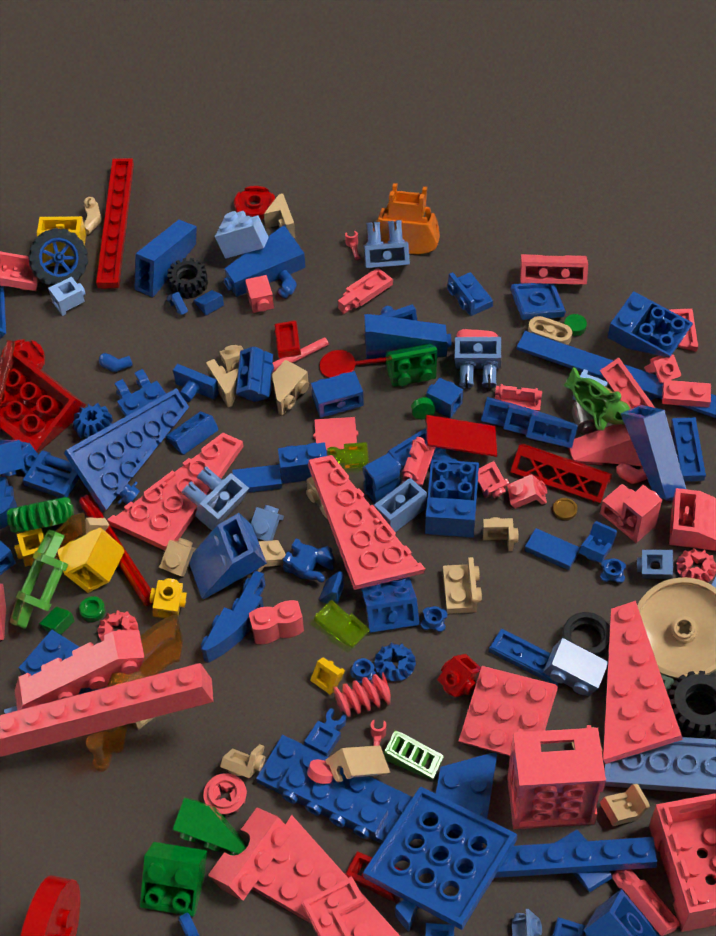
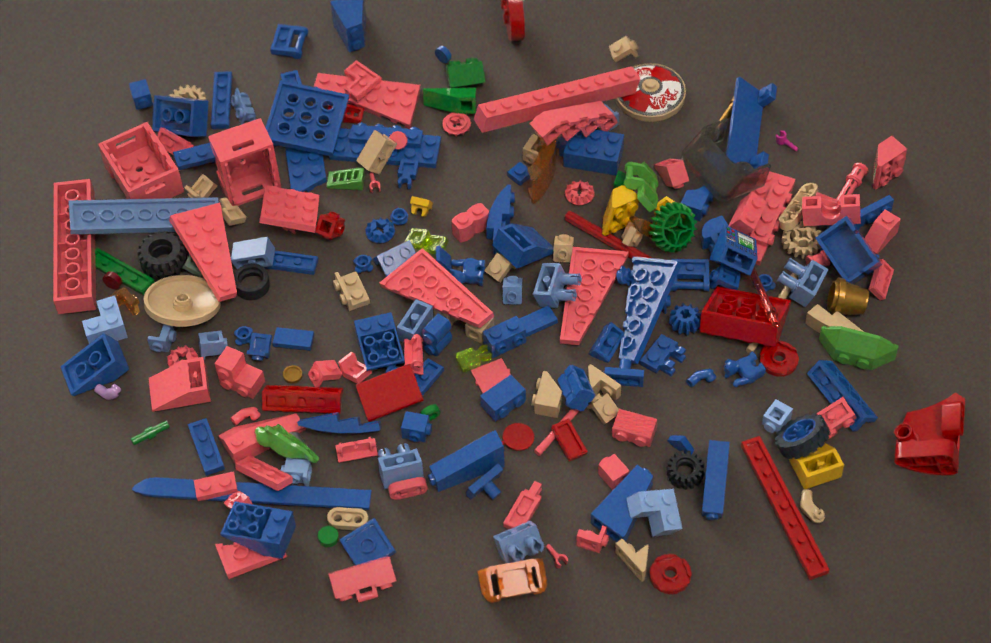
camera: 160 degrees right, 0 degrees up
(63, 351) = (746, 368): none -> blue animal
(92, 609) = (602, 199): green tile -> none
(167, 598) = (552, 211): yellow brick -> none
(209, 302) = (655, 456): blue slope -> none
(214, 328) = (634, 428): none -> coral brick
(241, 872) = (417, 101): coral arch -> none
(244, 764) = (452, 139): tan bracket -> none
(288, 285) = (594, 492): blue arm -> none
(314, 241) = (592, 541): none -> coral bracket
(362, 695) = (390, 196): coral piece -> none
(412, 364) = (451, 436): green slope -> none
(469, 293) = (432, 536): blue bracket -> none
(500, 530) = (335, 335): tan bracket -> none
(655, 449) = (231, 412): blue slope -> none

